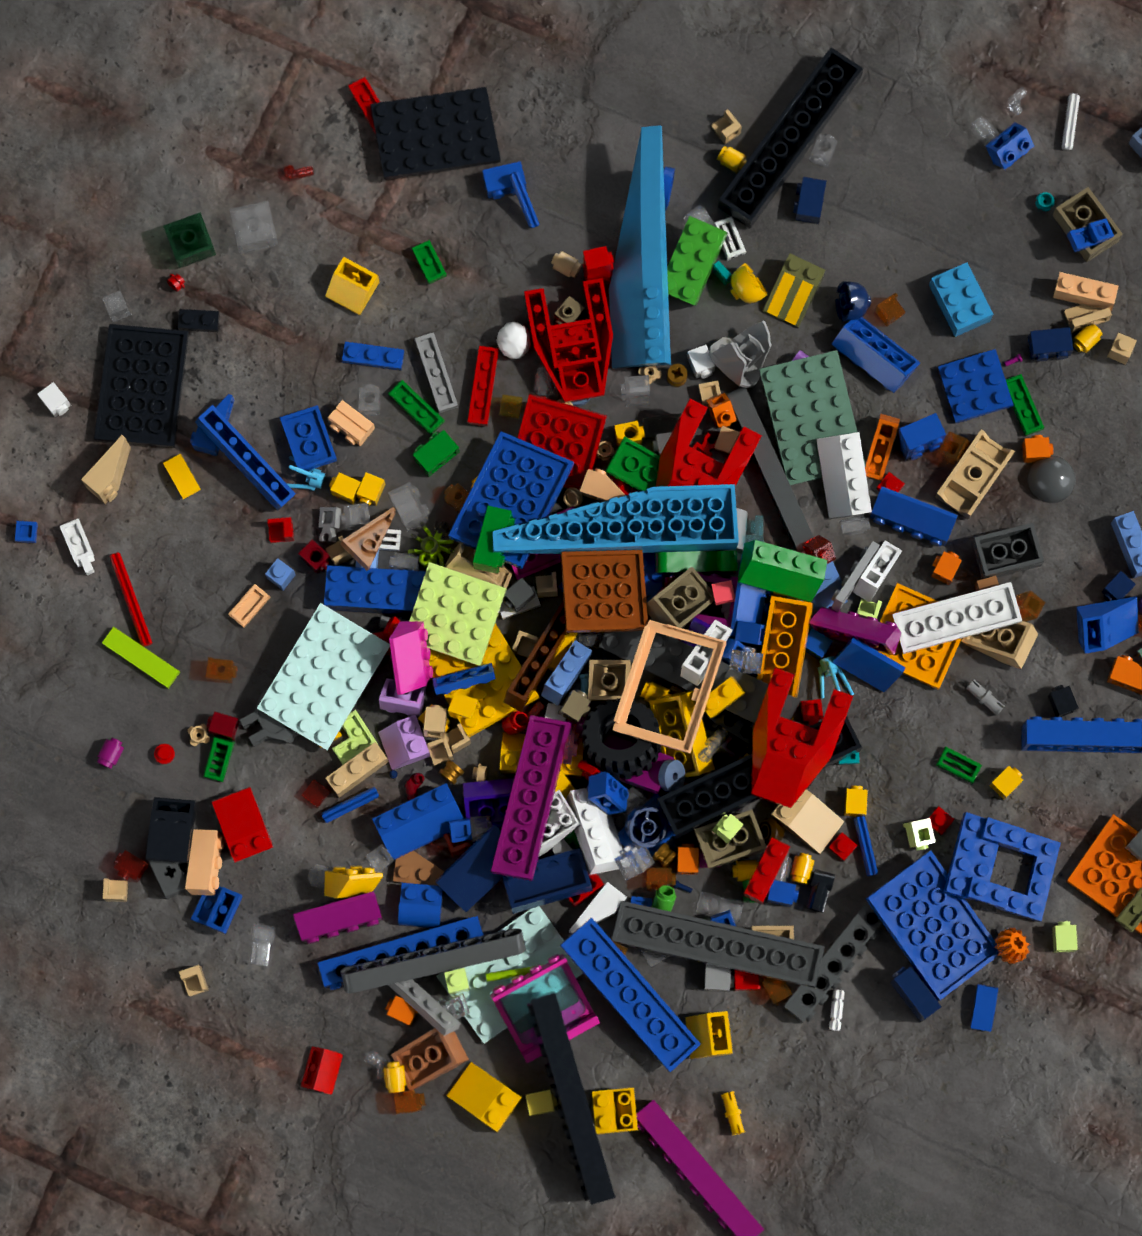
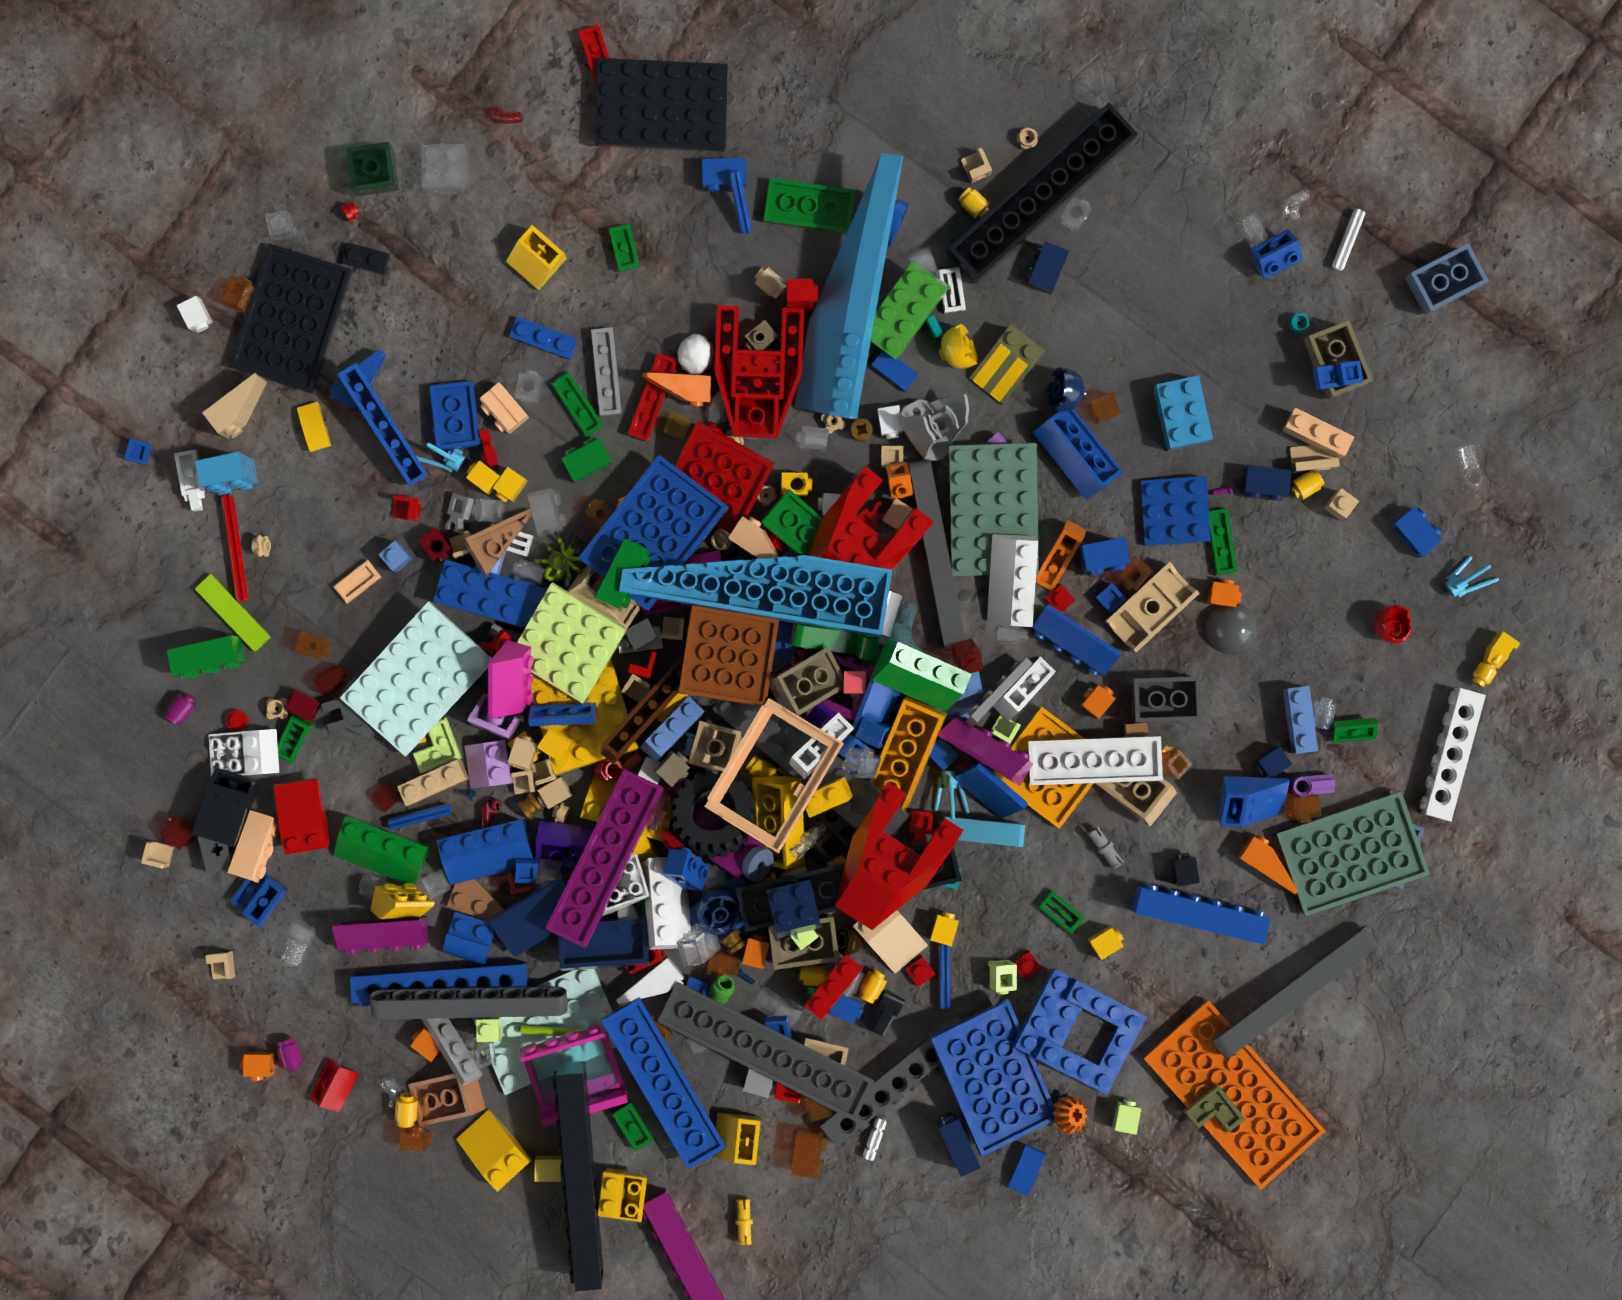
camera: 10 degrees right, 10 degrees up
(89, 374) = (237, 294): none -> clear orange brick
(113, 529) = (227, 473): none -> dark azure brick
(126, 699) = (206, 657): none -> green brick
(155, 591) = (261, 546): none -> tan plate
(177, 779) = (245, 752): none -> white slope
(243, 697) = (331, 679): none -> clear red brick
(247, 1065) = (257, 1065): none -> orange brick
(275, 1049) = (289, 1054): none -> magenta brick
(321, 842) = (381, 850): none -> green slope
(346, 466) = (489, 454): none -> red plate
(470, 756) = (554, 793): none -> tan brick
(508, 369) = (684, 387): none -> orange slope
(528, 626) = (645, 672): none -> red panel
(586, 192) = (809, 205): none -> green plate
(609, 1047) = (633, 1126): none -> green plate
(694, 317) = (895, 370): none -> blue tile
(715, 801) = (794, 908): none -> dark blue brick
(766, 89) = (1027, 132): none -> tan plate
(777, 1035) = (807, 1153): none -> clear orange brick
(879, 703) = (990, 831): none -> medium azure slope
(936, 474) = (1110, 598): none -> blue plate

